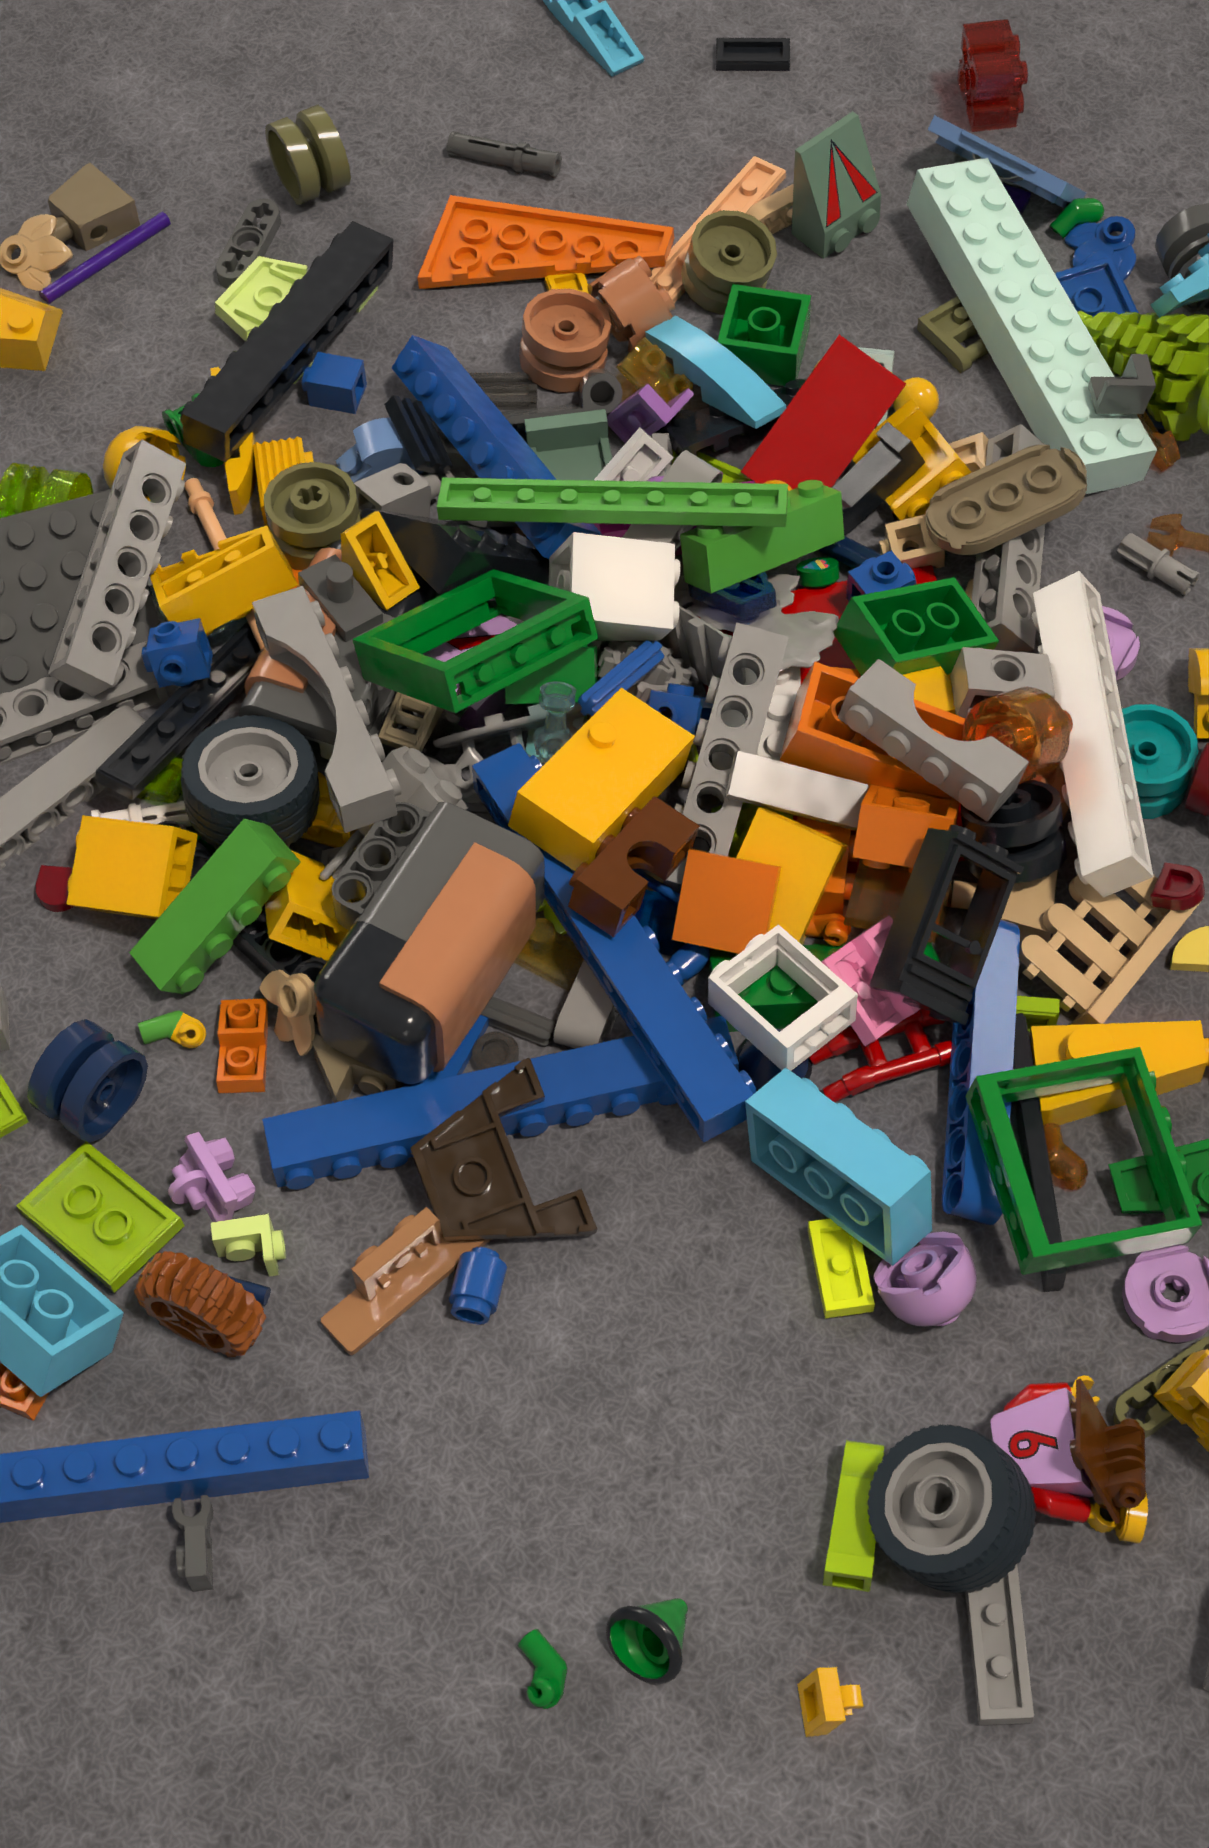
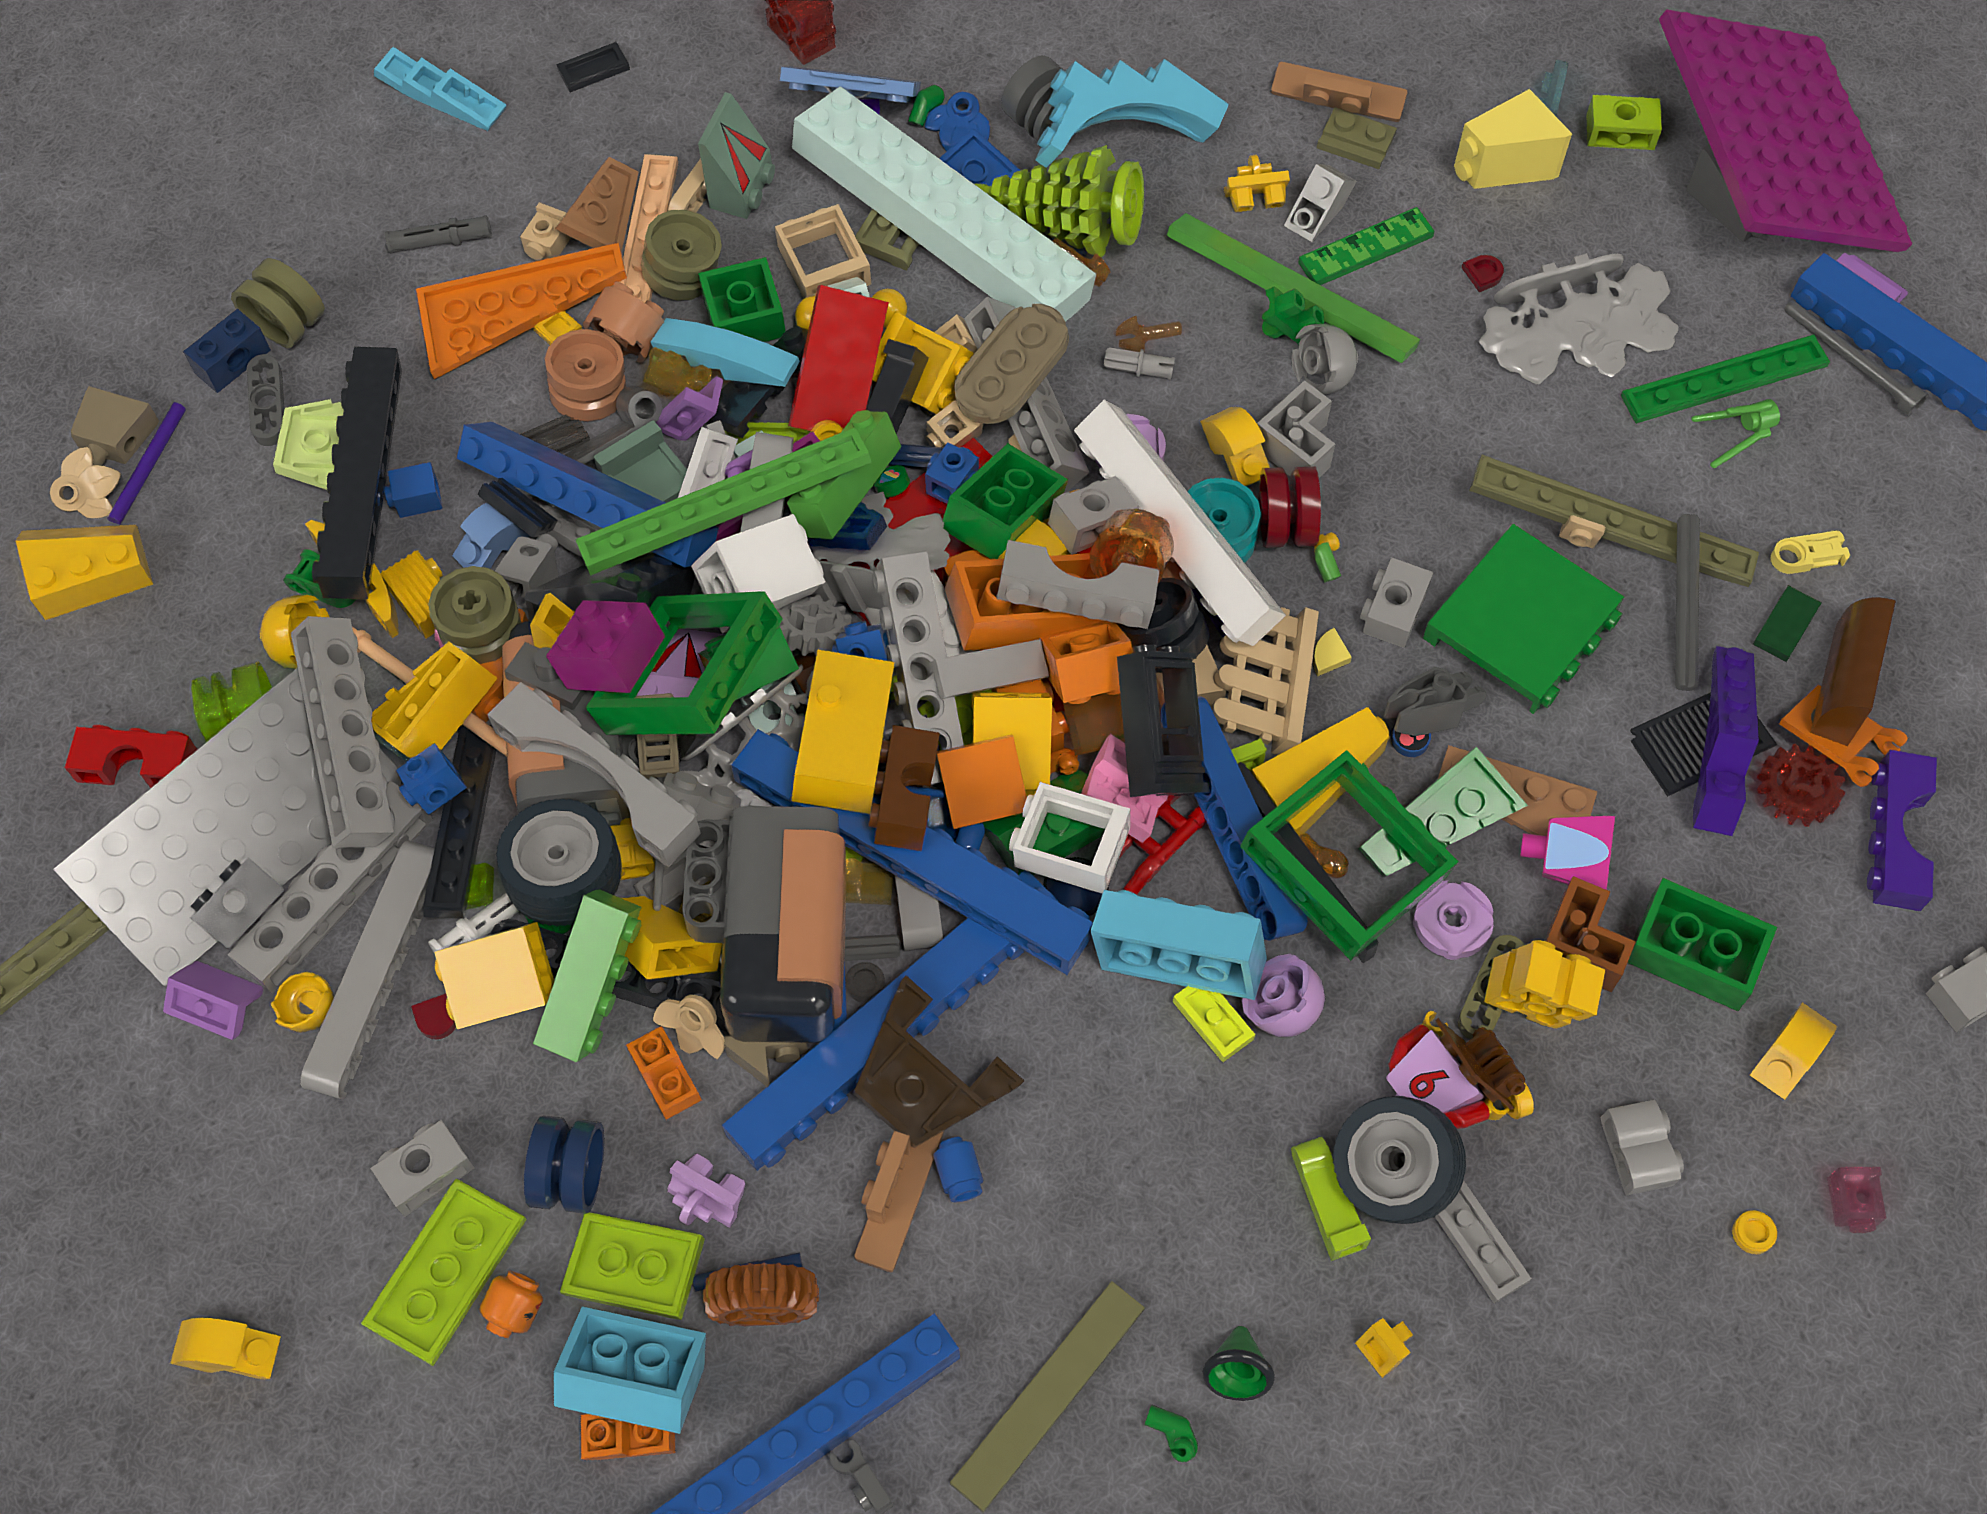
camera: 30 degrees left, 5 degrees up
(174, 1026) = (601, 1083): arm -> none
(235, 180) = (226, 350): none -> dark blue brick
(243, 1237) = (758, 1225): yellowish green bracket -> none
(403, 586) = (606, 646): none -> magenta brick
(434, 1562) = (1047, 1397): none -> olive tile
(556, 699) = (783, 714): clear light blue leg -> none
(610, 192) = (540, 236): none -> tan brick
(623, 676) = (808, 641): blue axle -> none
(680, 188) = (603, 206): none -> medium nougat wing
(896, 292) = (822, 224): none -> tan window
(1089, 1041) = (1304, 765): yellow tile -> none
(1126, 393) = (1054, 236): dark grey panel -> none
(1178, 888) = (1301, 613): dark red tile -> none

